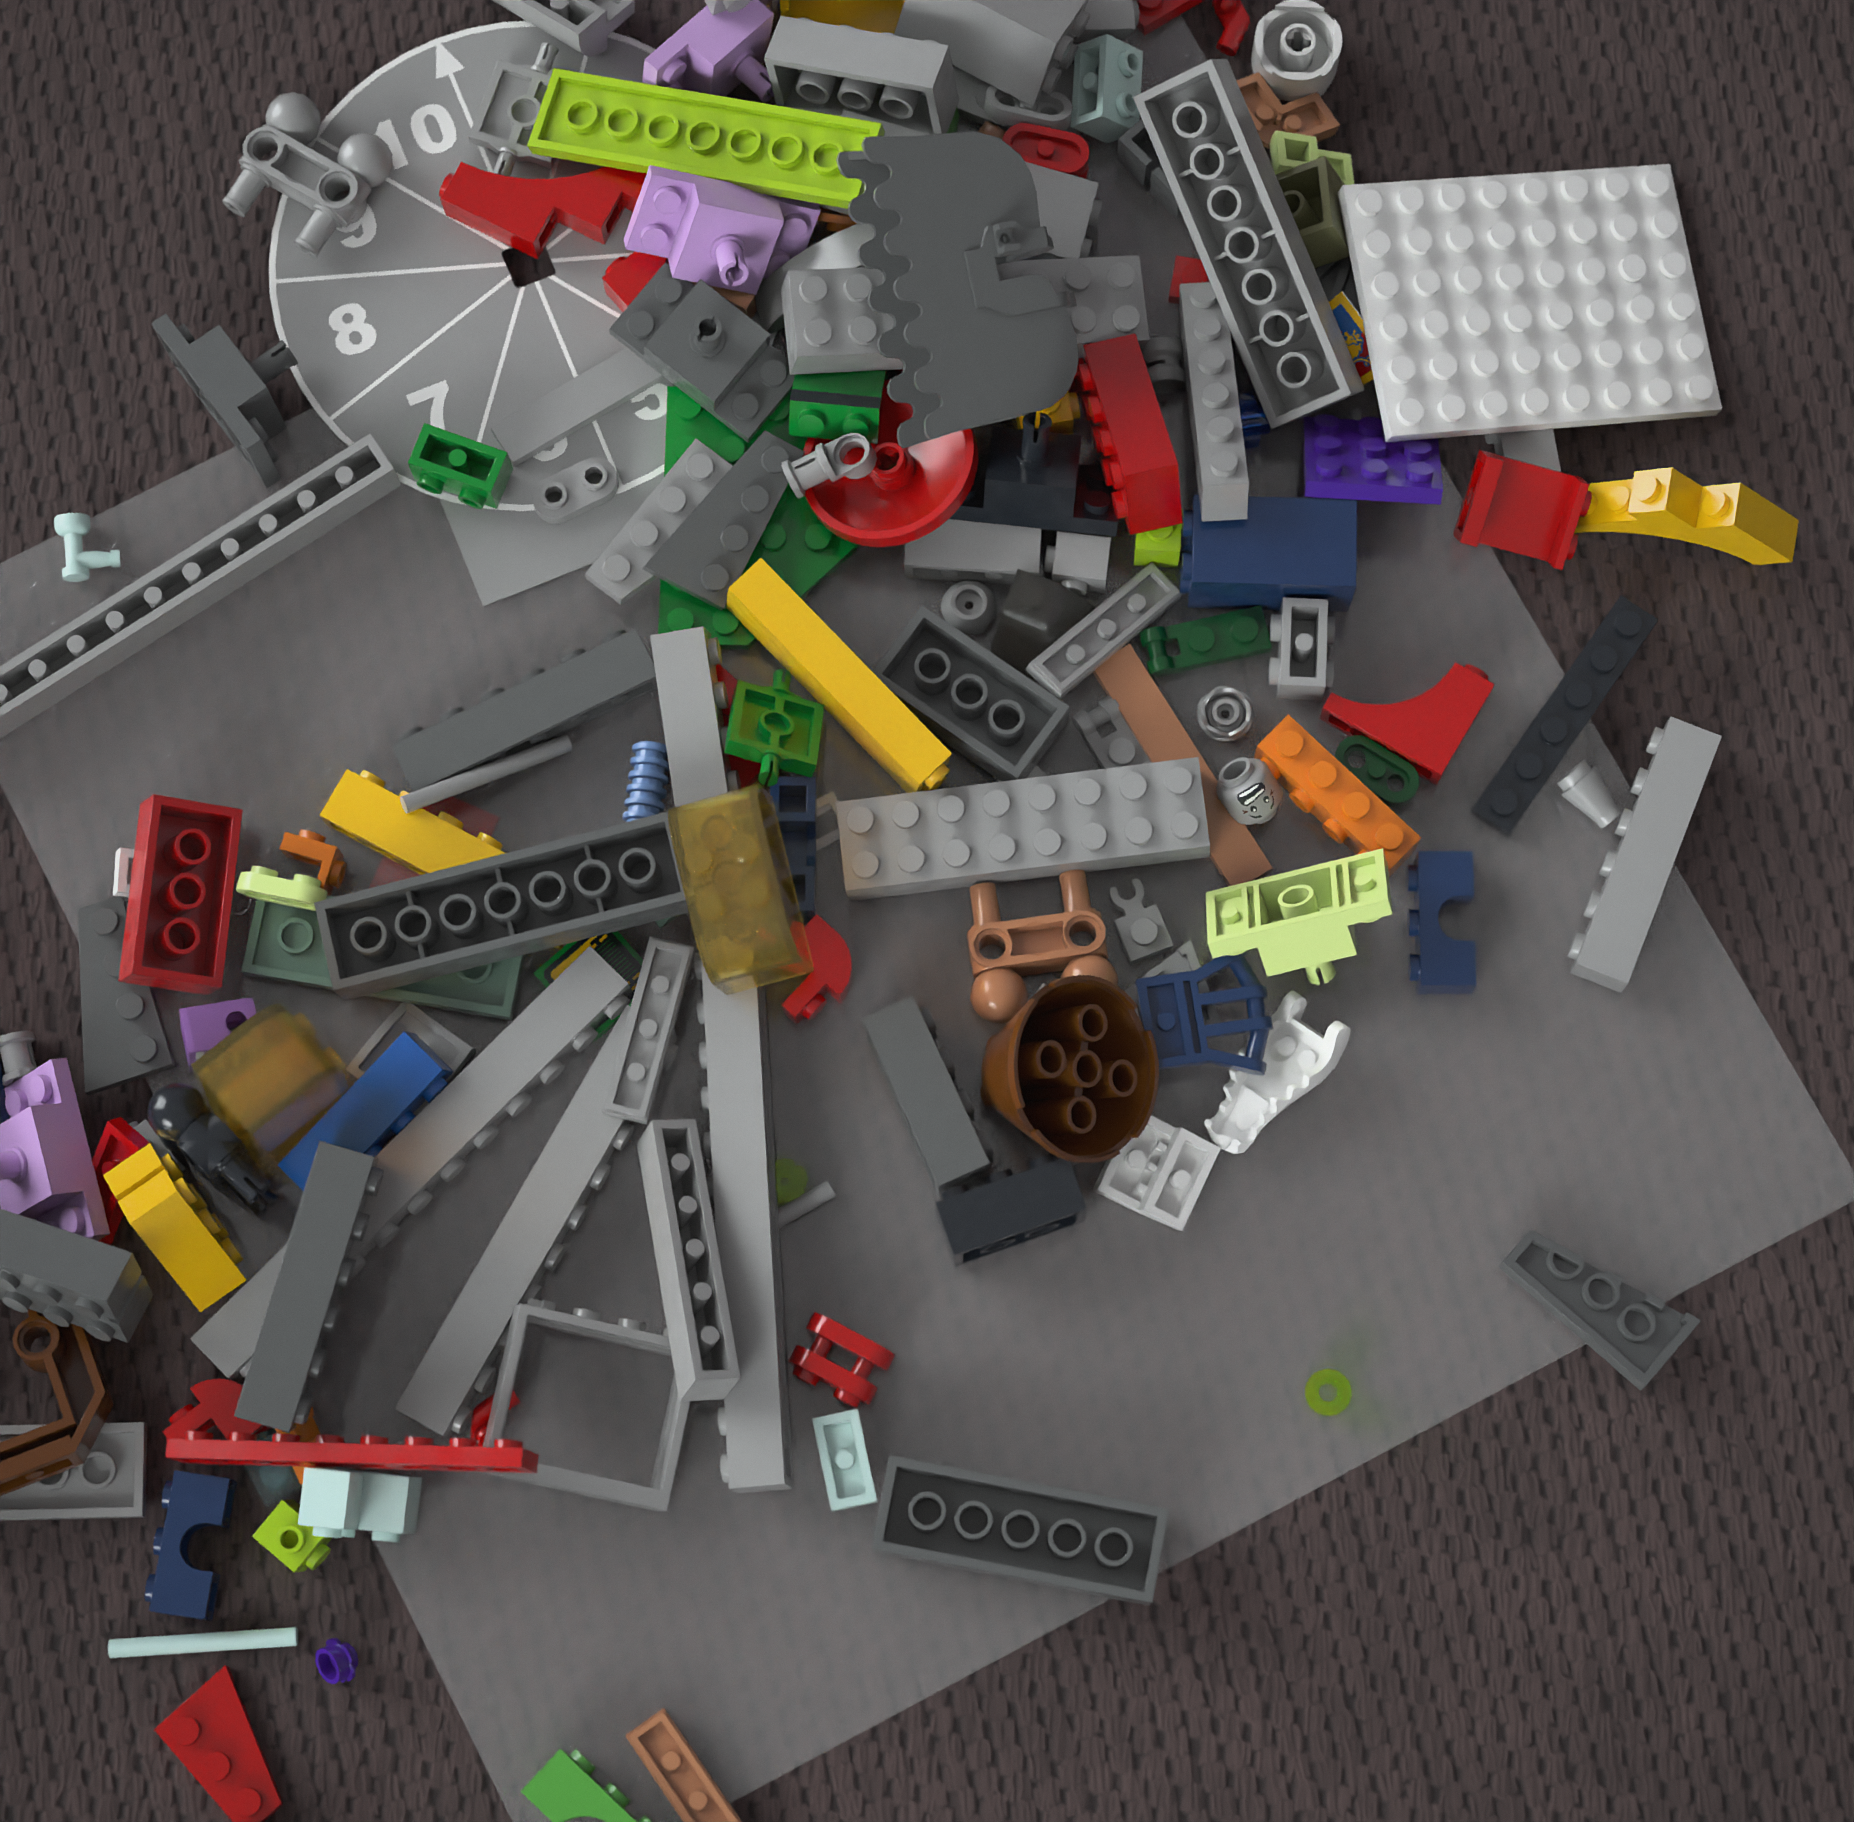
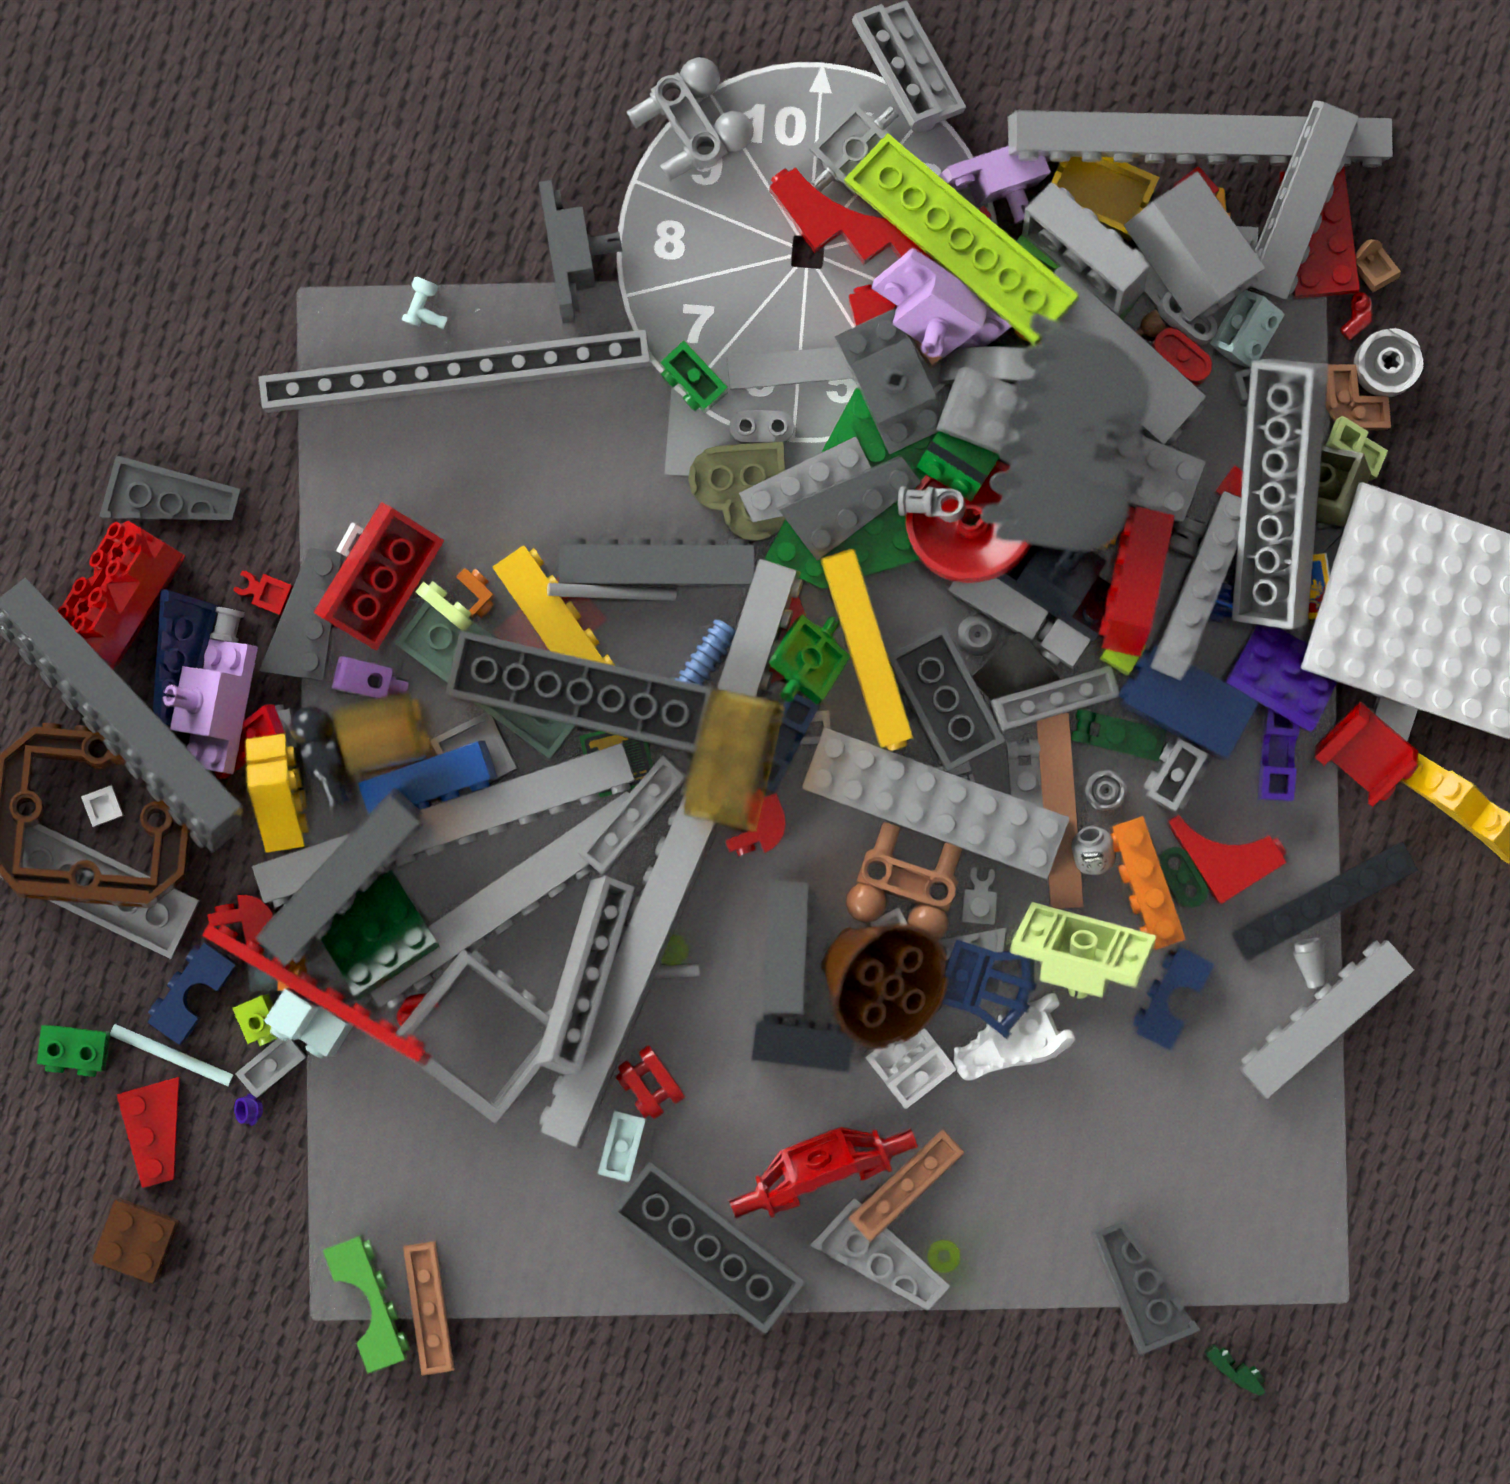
camera: 30 degrees right, 10 degrees up
(53, 994) = (268, 593): none -> red plate
(68, 1697) = (73, 1048): none -> green brick
(339, 1588) = (270, 1066): none -> light grey plate
(394, 1346) = (377, 936): none -> dark green plate
(553, 565) = (726, 471): none -> olive plate
(1106, 1351) = (818, 1163): none -> red plate
(1233, 1325) = (906, 1185): none -> nougat tile
(1239, 1430) = (882, 1260): none -> light grey wing
(1420, 581) = (1277, 765): none -> dark purple arch
(1786, 1352) = (1242, 1375): none -> dark green slope

